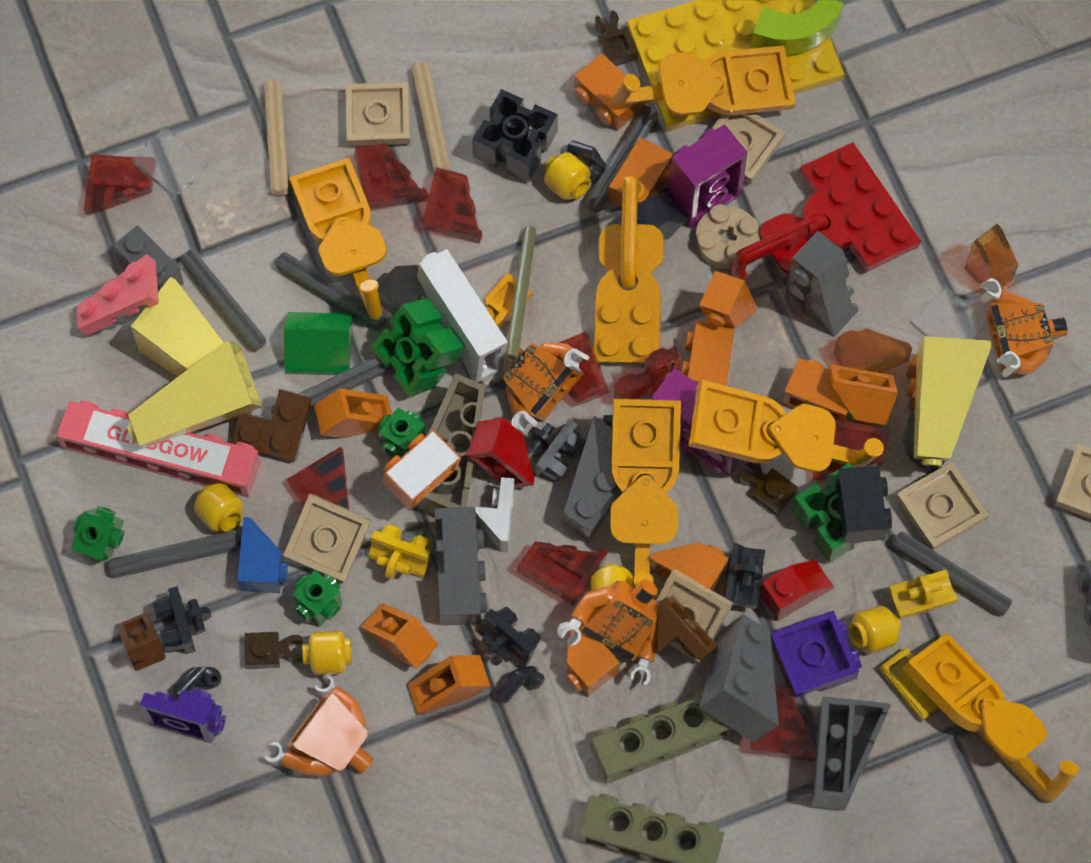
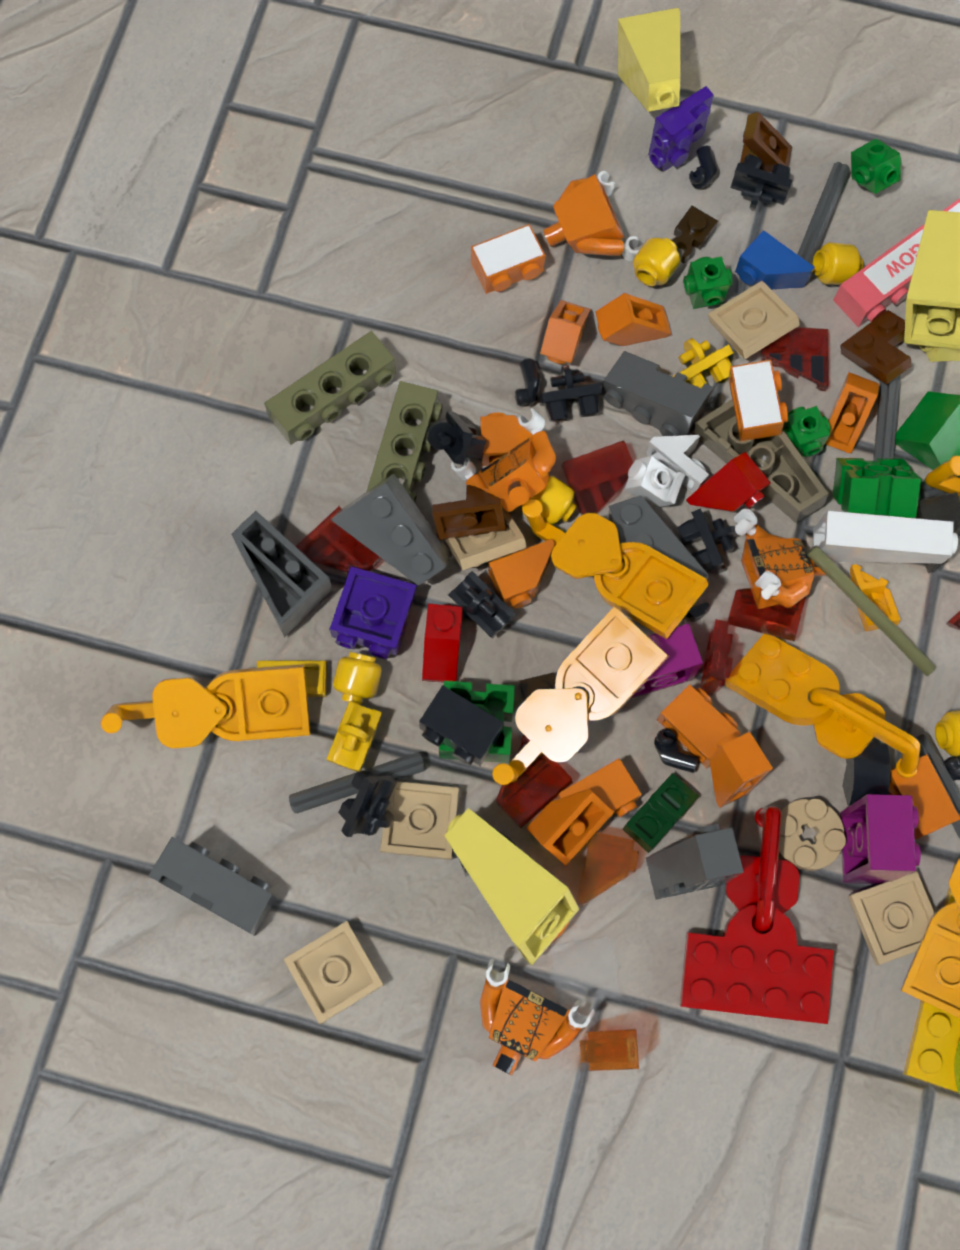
camera: 125 degrees right, 5 degrees up
(140, 772) = (651, 57): none -> light yellow slope
(417, 778) = (507, 259): none -> brick
(536, 517) = (654, 482): none -> white brick
(623, 695) = (456, 438): none -> black hips
(744, 367) = (670, 752): none -> black arm
(788, 345) = (660, 812): none -> dark green slope
(968, 538) = (370, 806): none -> black hips

